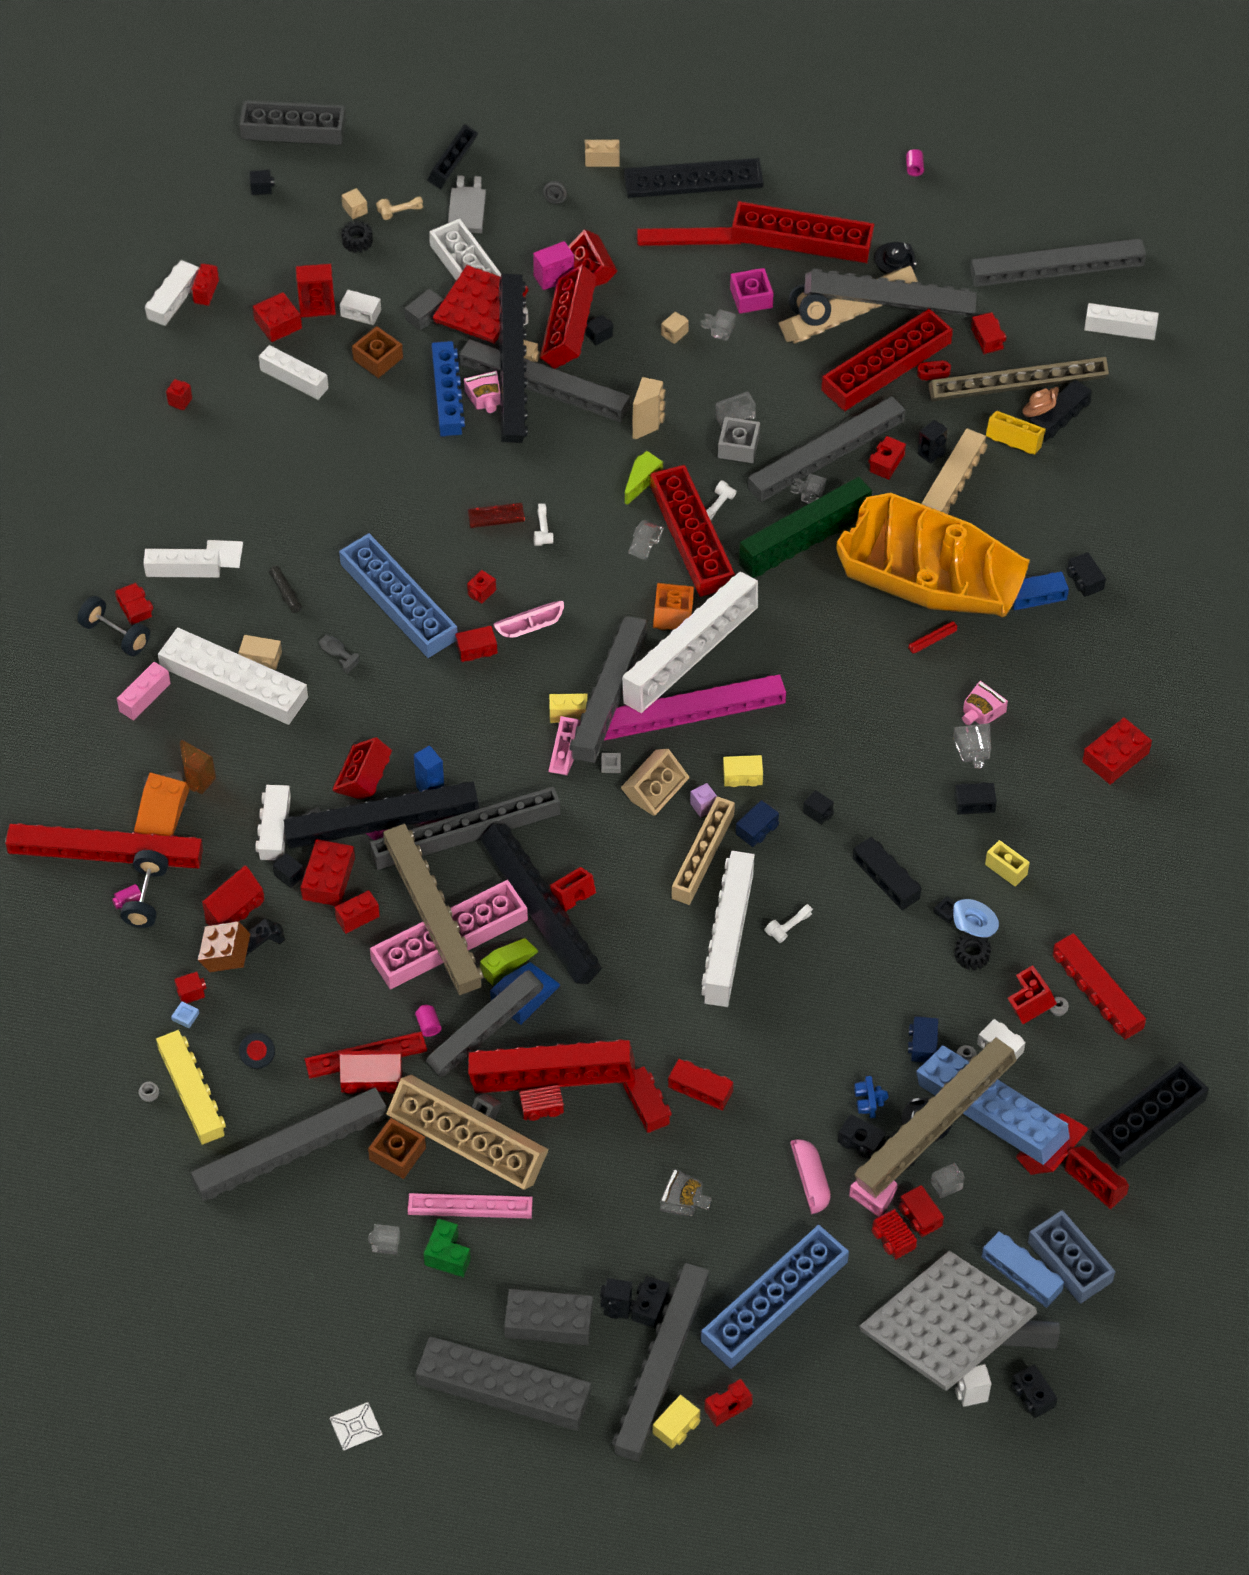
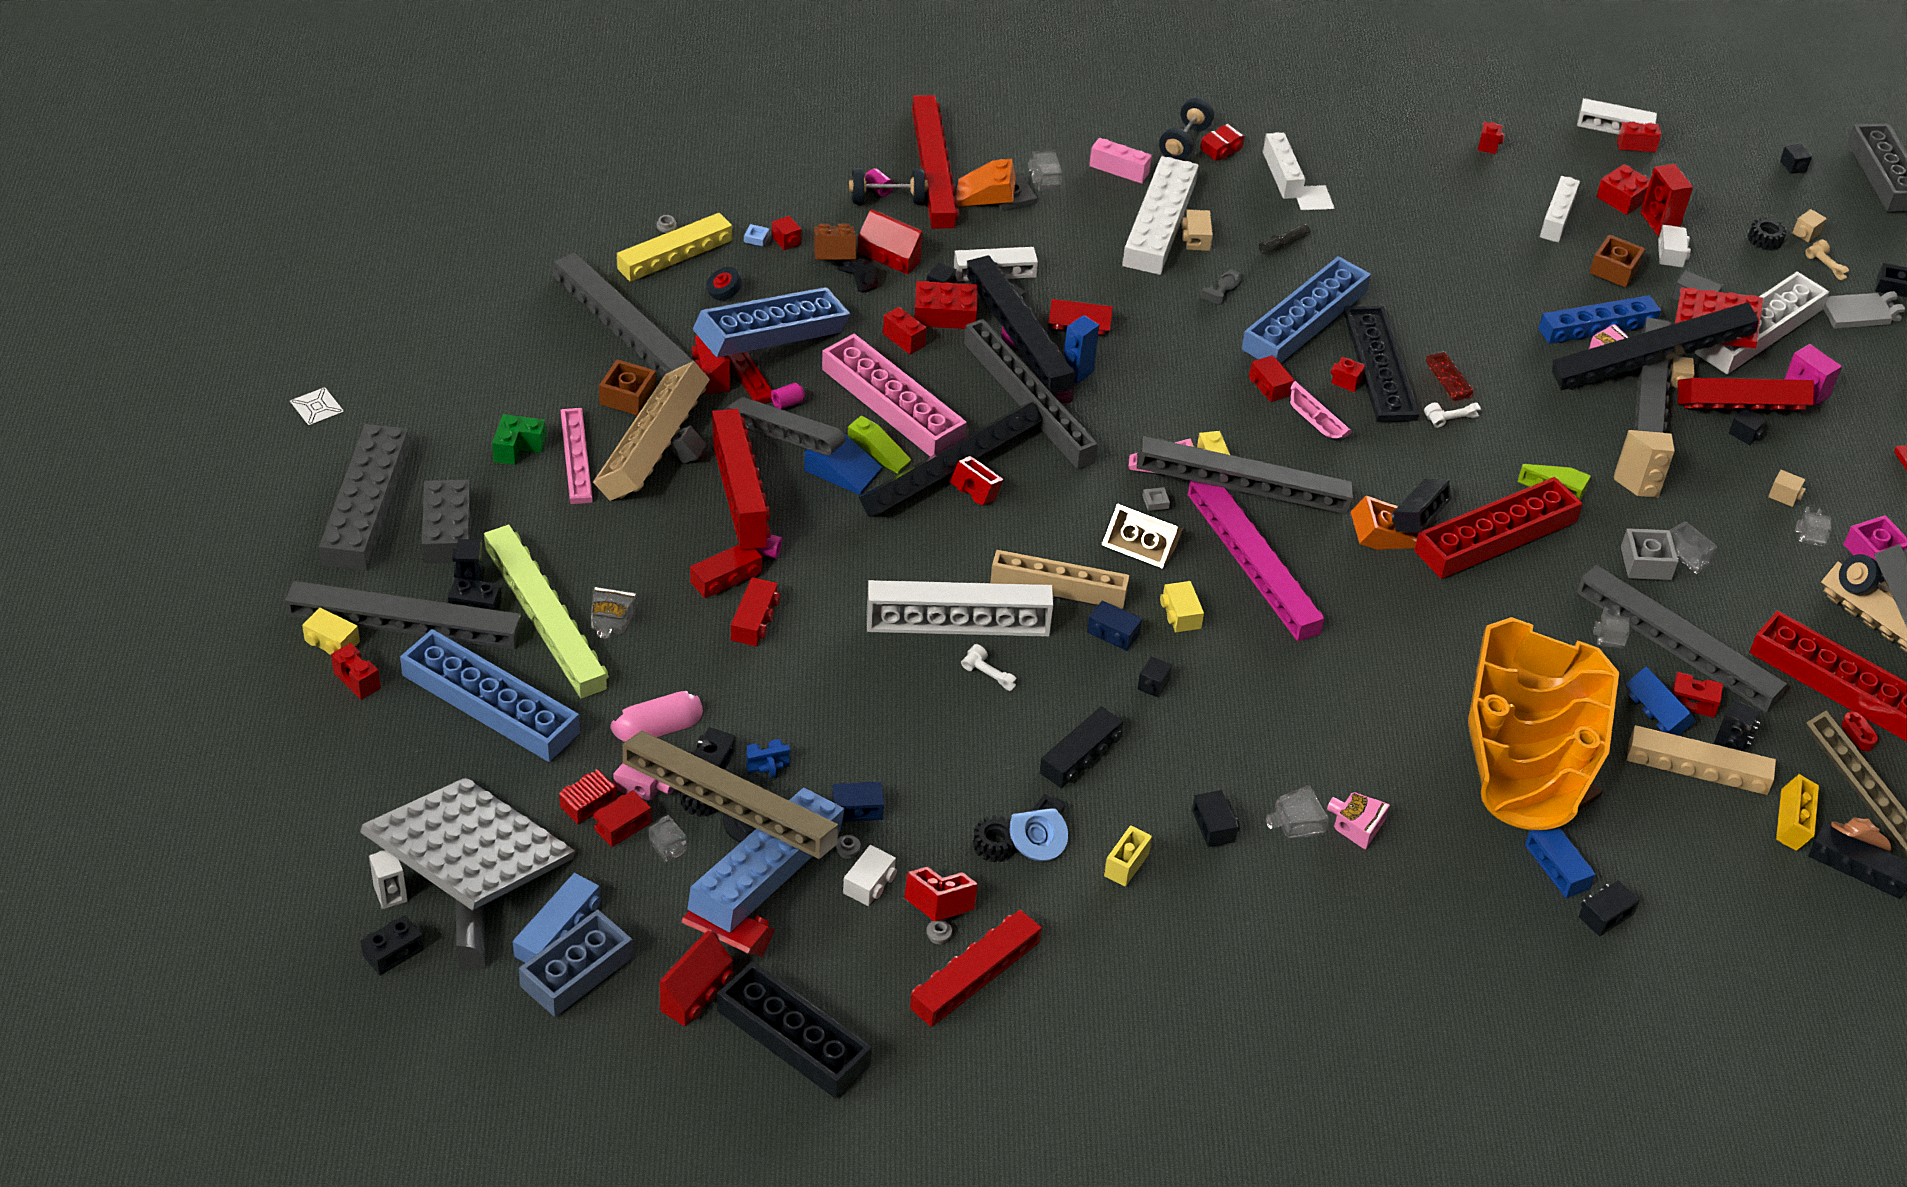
camera: 75 degrees right, 10 degrees down
(142, 755) = (1045, 170): none -> clear brick
(197, 767) = (1037, 198): clear orange slope -> none
(352, 1009) = (770, 321): none -> medium blue brick
(385, 1239) = (524, 395): clear brick -> none
(432, 909) = (906, 364): dark tan brick -> none
(469, 559) = (1383, 369): none -> black plate
(541, 1102) = (705, 489): red brick -> none
(592, 254) = (1844, 410): red slope -> none
(645, 535) = (1474, 488): clear brick -> none
(664, 573) = (1422, 505): none -> black brick
(673, 1247) = (546, 612): none -> yellowish green brick
(690, 642) = (1333, 531): white brick -> none
(702, 799) = (1136, 573): lavender brick -> none
(725, 492) = (1573, 555): white brick -> none
(803, 528) = (1510, 594): dark green brick -> none
(898, 481) = (1659, 703): none -> blue brick
(932, 637) = (1445, 764): red axle -> none
(1117, 750) = (1340, 959): red brick -> none

